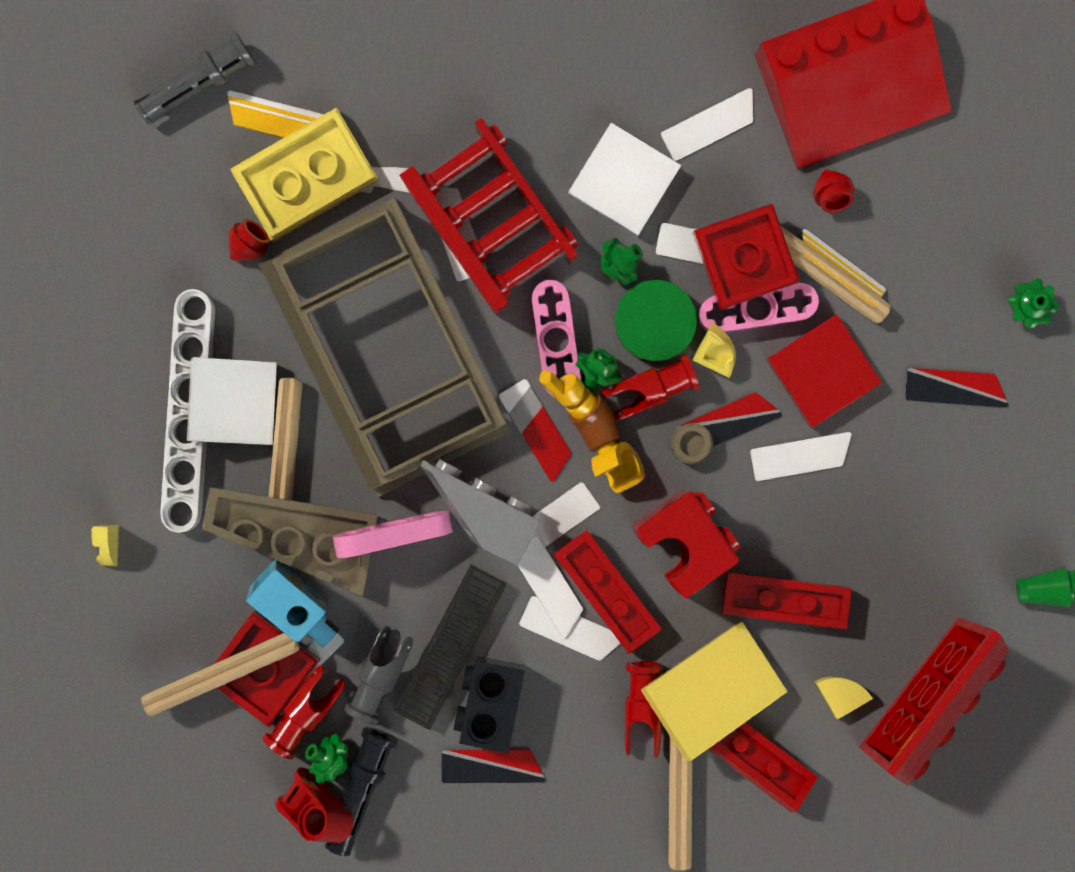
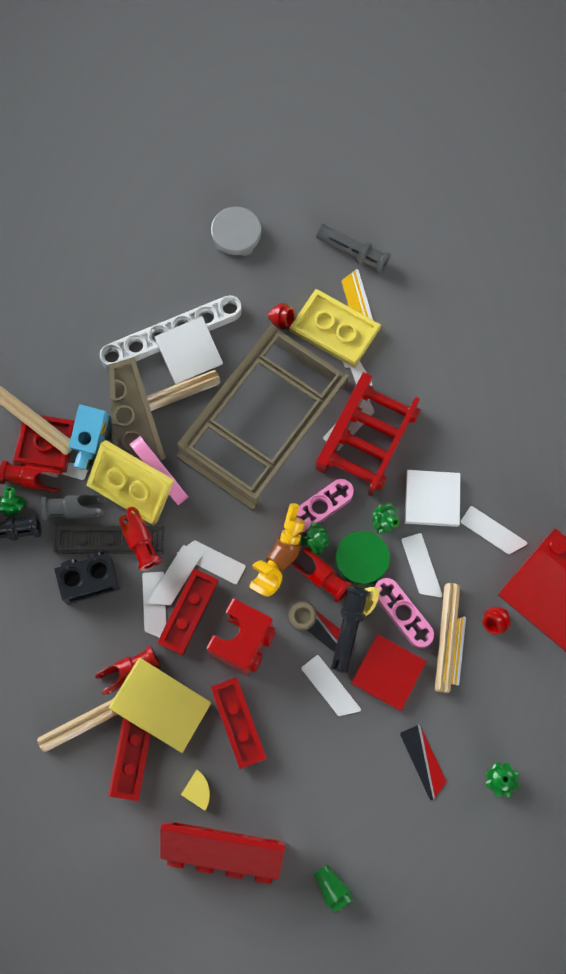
camera: 65 degrees right, 15 degrees down
(76, 235) = (236, 231): none -> light grey tile
(107, 540) = (76, 326): light yellow tile -> none
(388, 582) = (129, 482): none -> light yellow tile
(475, 609) = (139, 539): none -> red piece
(487, 520) = (194, 521): light grey slope -> none
(490, 766) = (49, 600): sticker -> none
(536, 428) = (263, 524): sticker -> none
(731, 379) = (352, 615): none -> black pin
(746, 256) = (428, 587): red tile -> none

